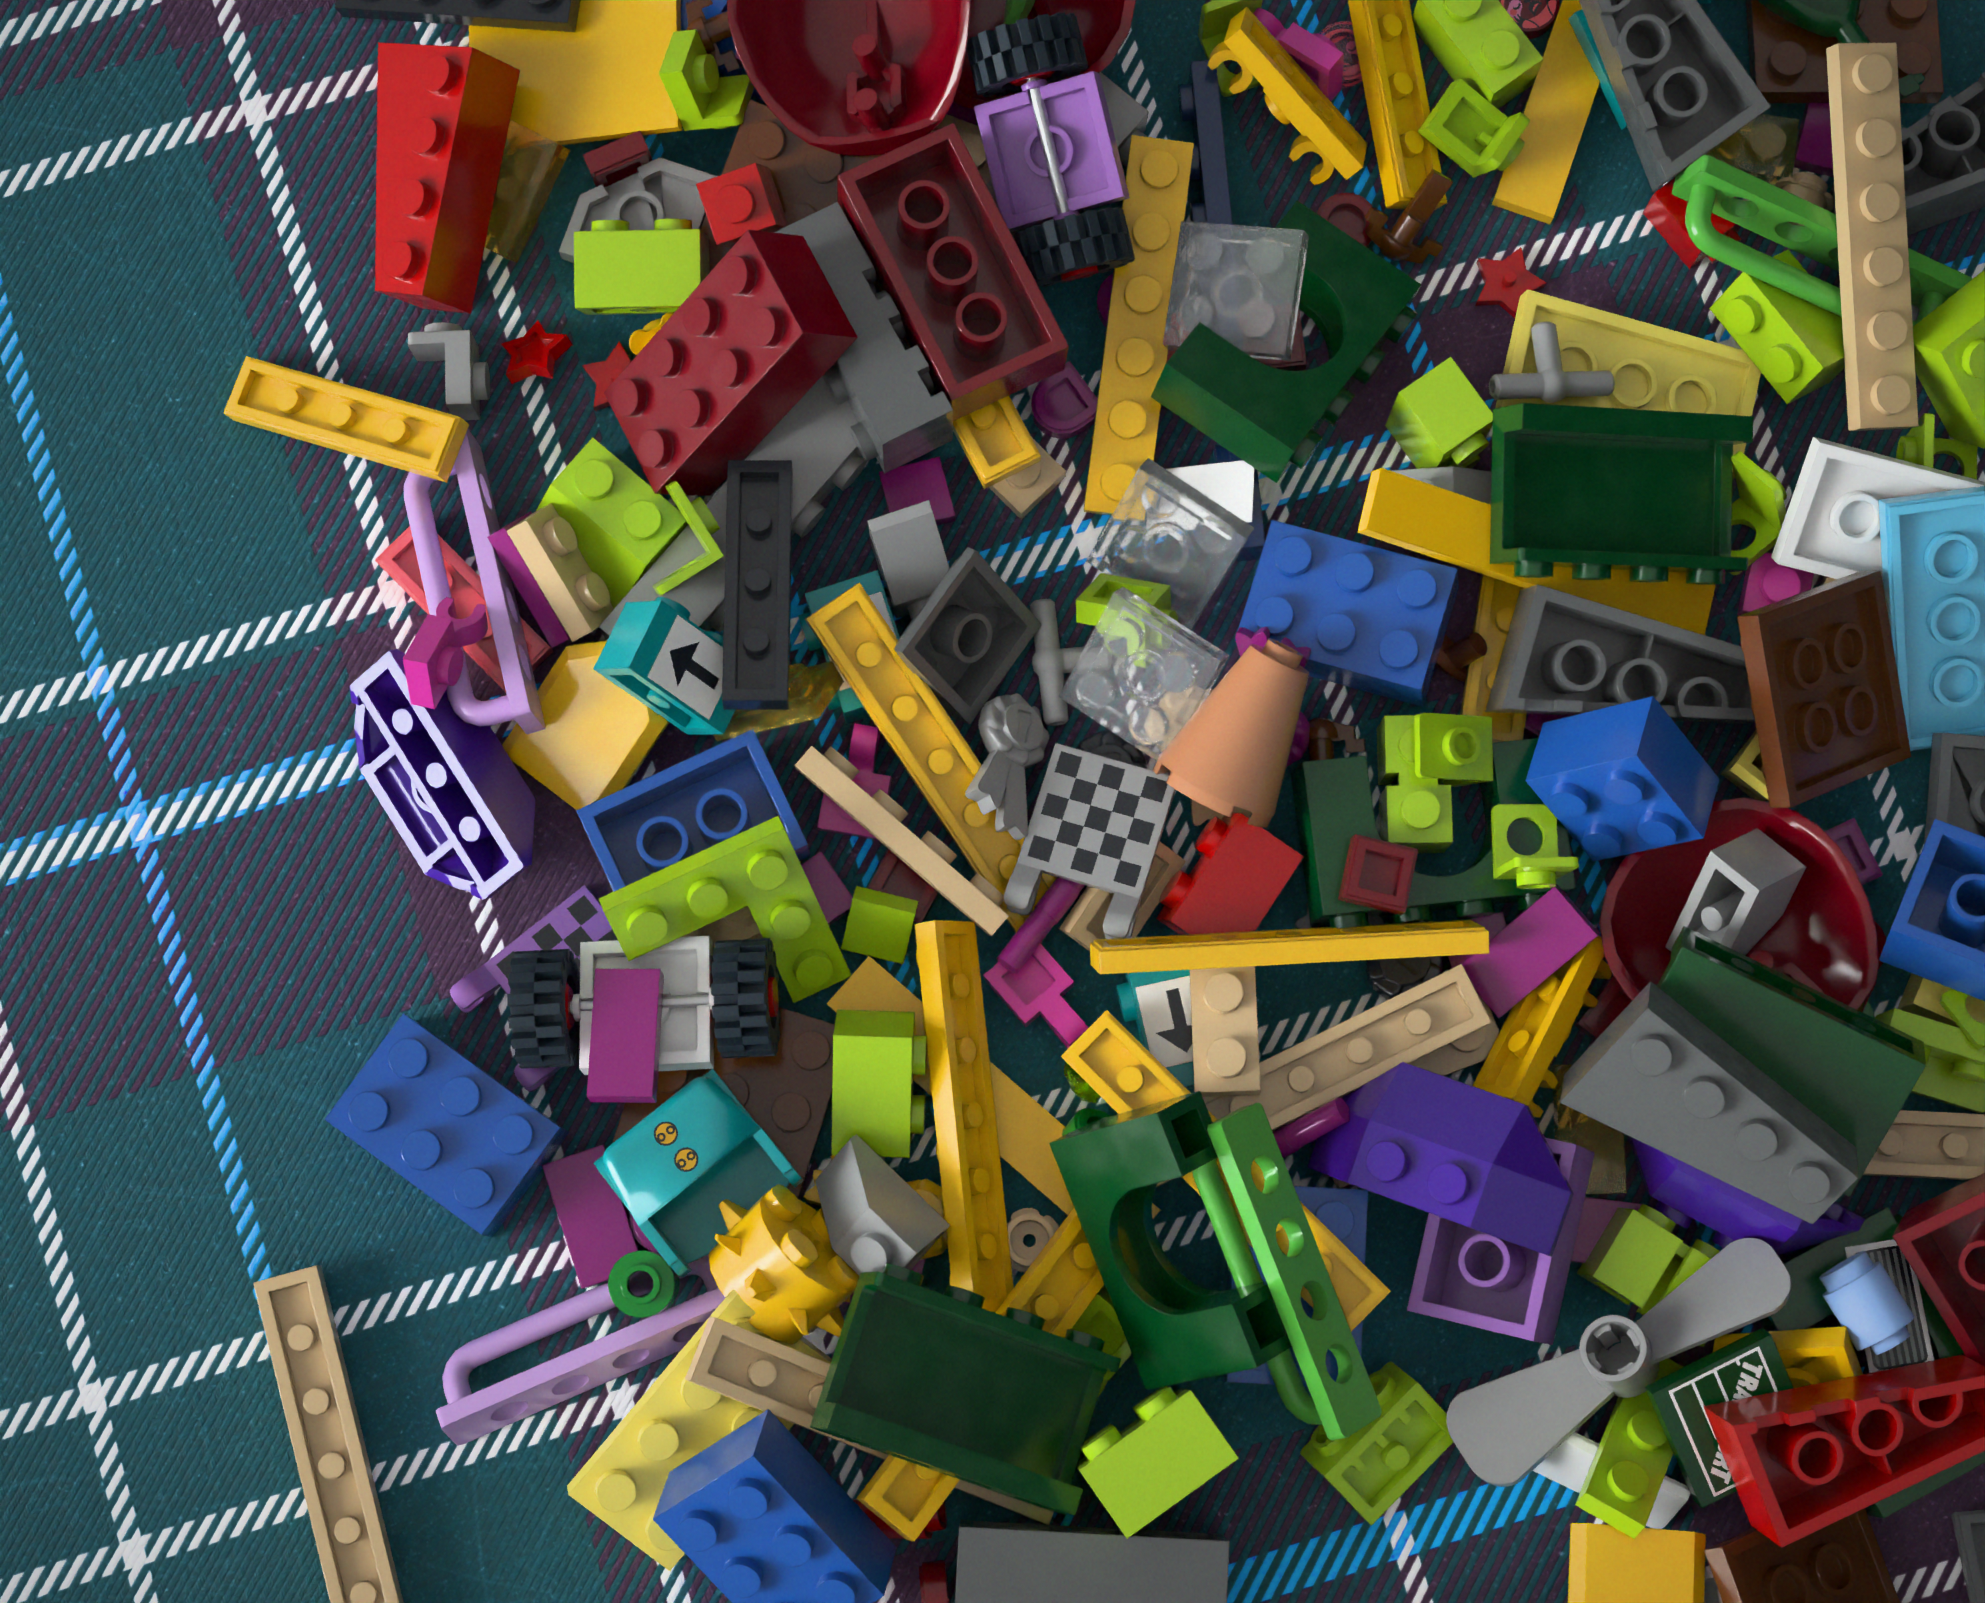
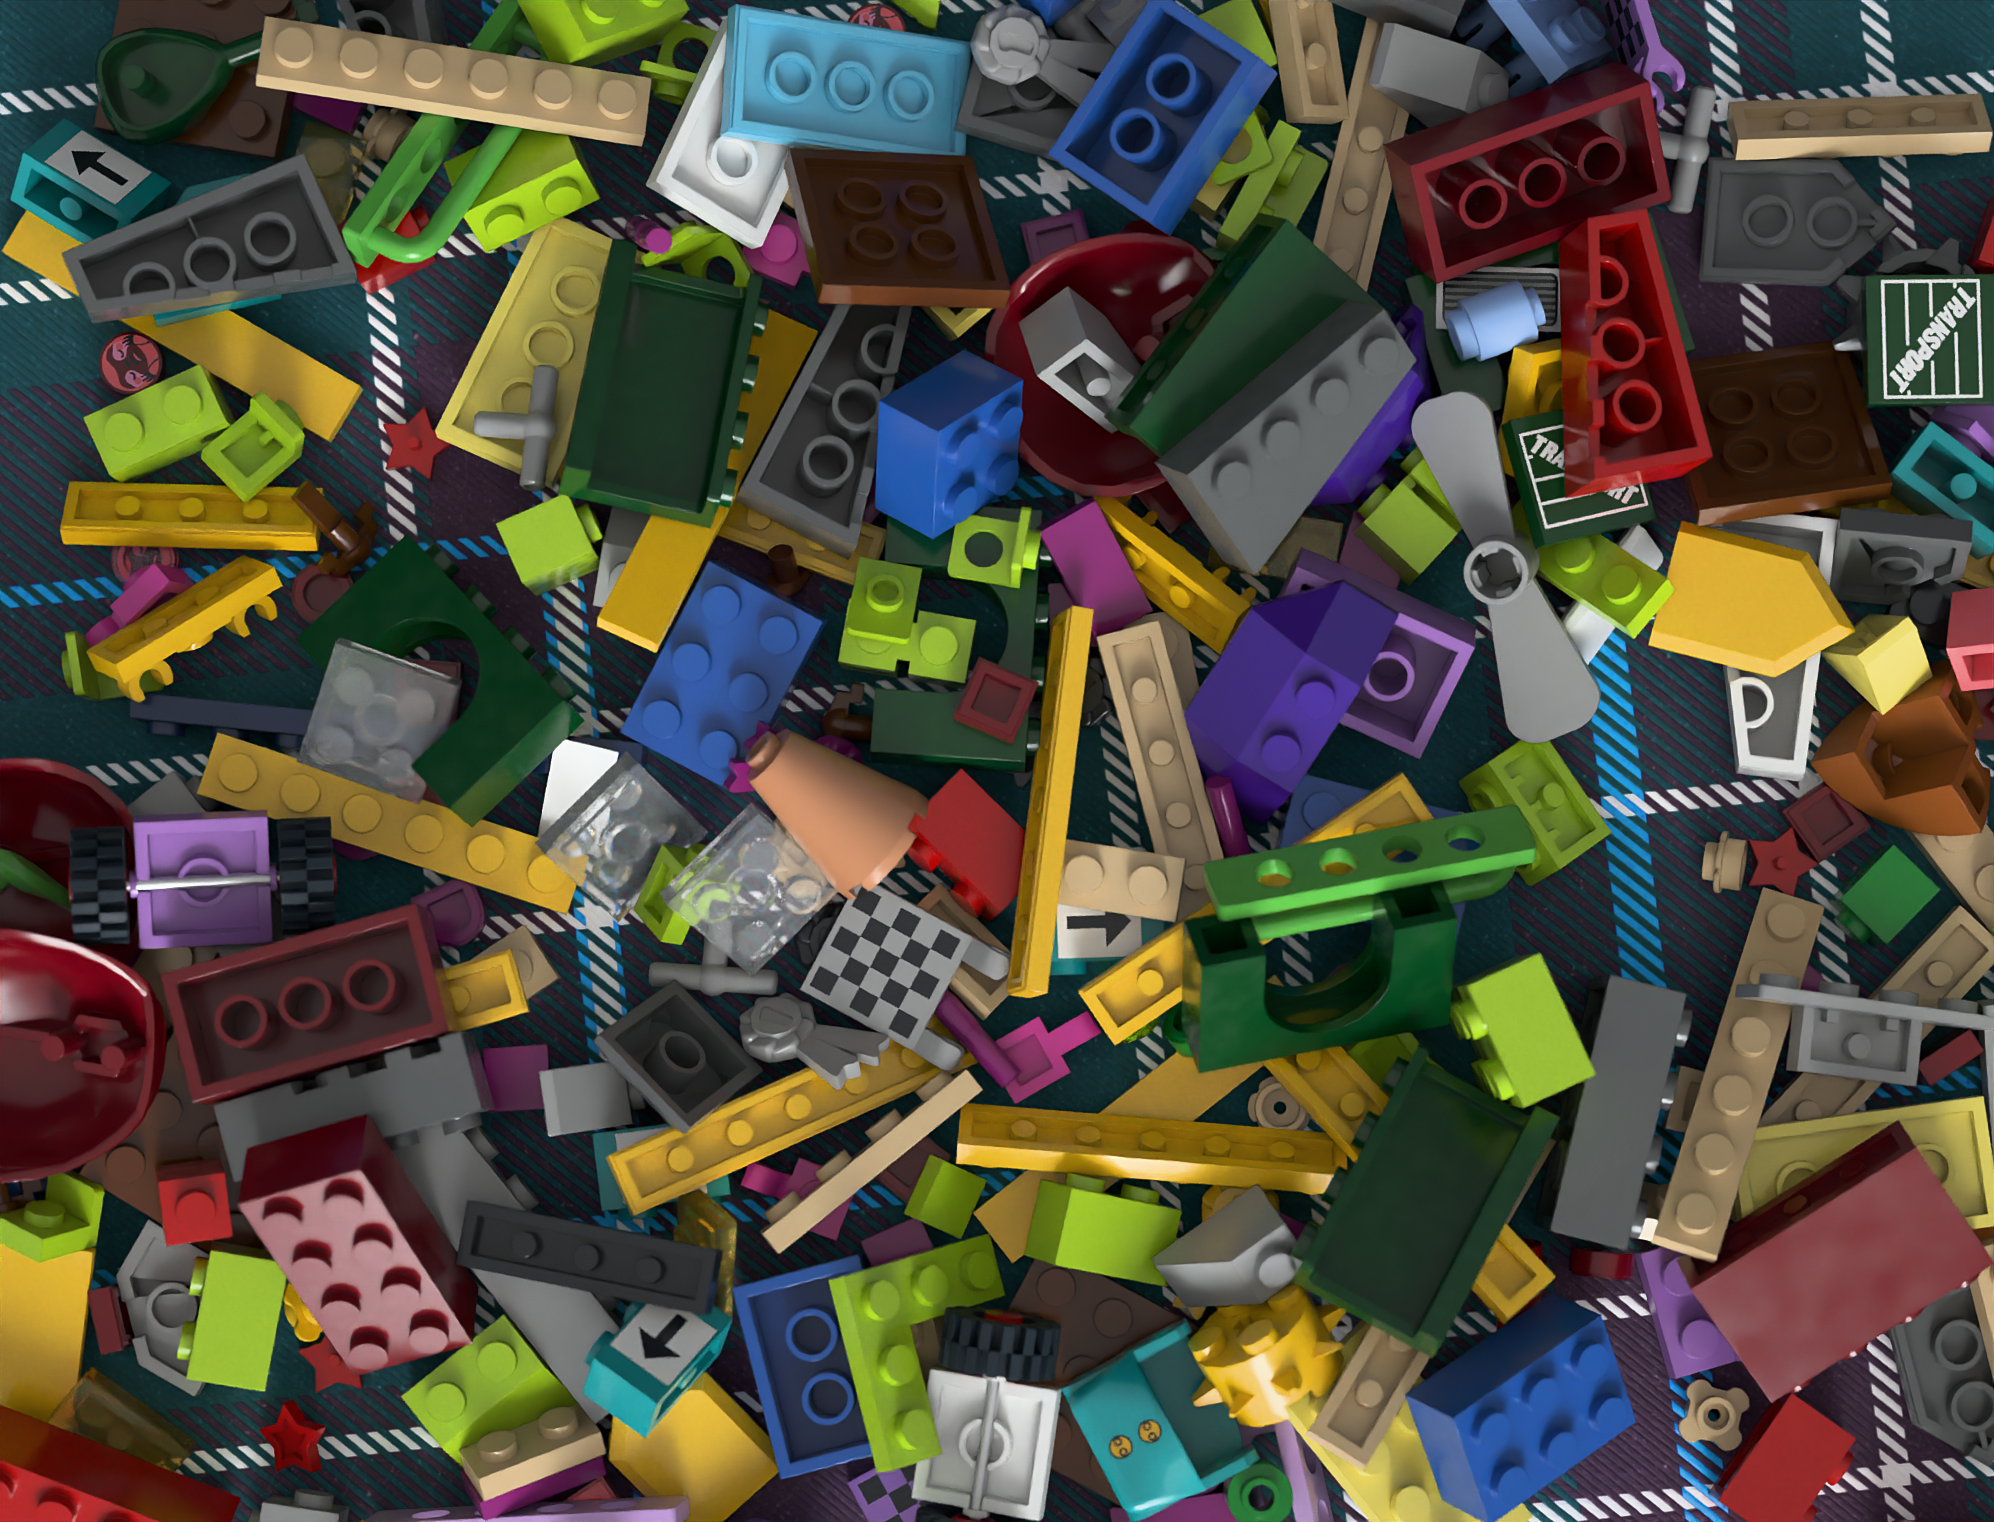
camera: 80 degrees left, 5 degrees up
(625, 1035) = (1016, 1469): magenta tile -> none
(703, 526) = (553, 1308): lime bracket -> none
(1763, 452) = (648, 234): none -> magenta piece

